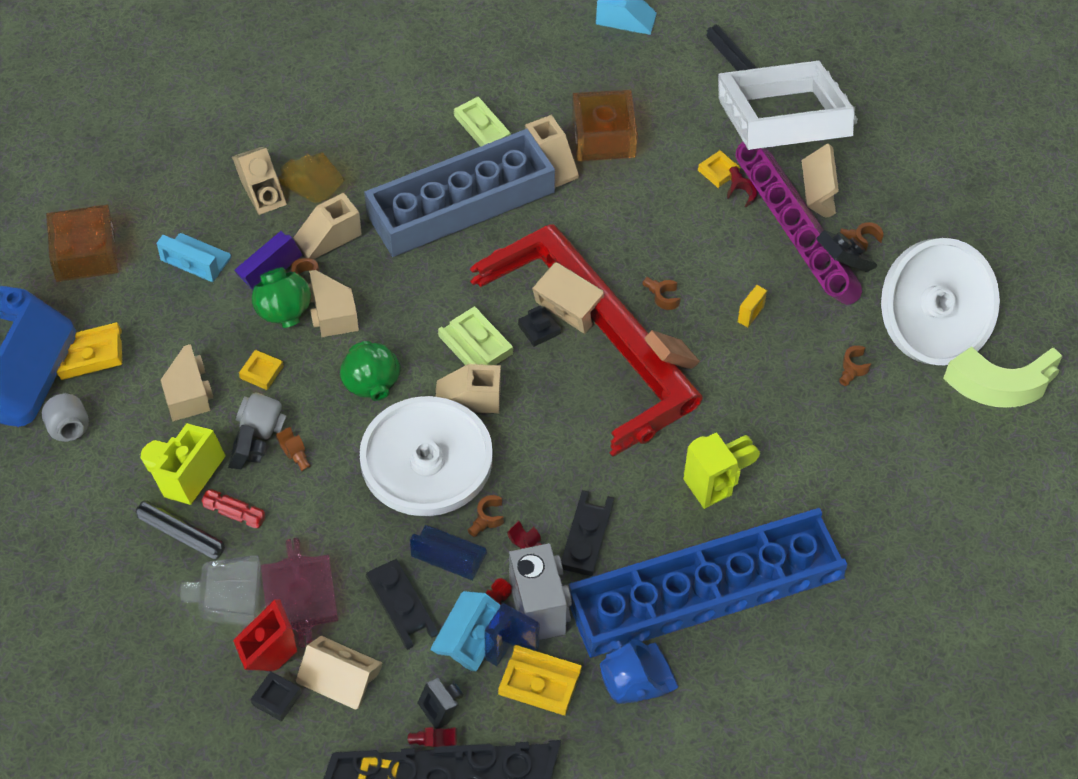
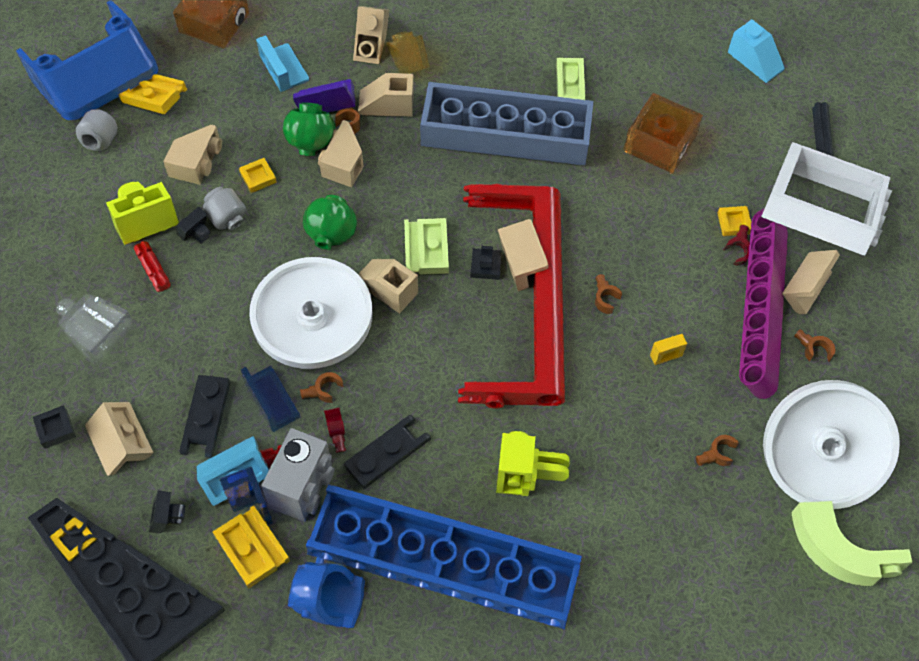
camera: 35 degrees right, 5 degrees up
(180, 529) = (104, 259): axle -> none
(267, 640) = (80, 380): red slope -> none
(293, 447) = (229, 246): dark orange piece -> none
(303, 588) = (140, 359): clear pink plate -> none
(434, 737) = (139, 537): dark red piece -> none
(555, 147) = (604, 130): tan slope -> none
(671, 350) = (568, 345): nougat tile -> none
(846, 251) = (781, 350): black hinge -> none

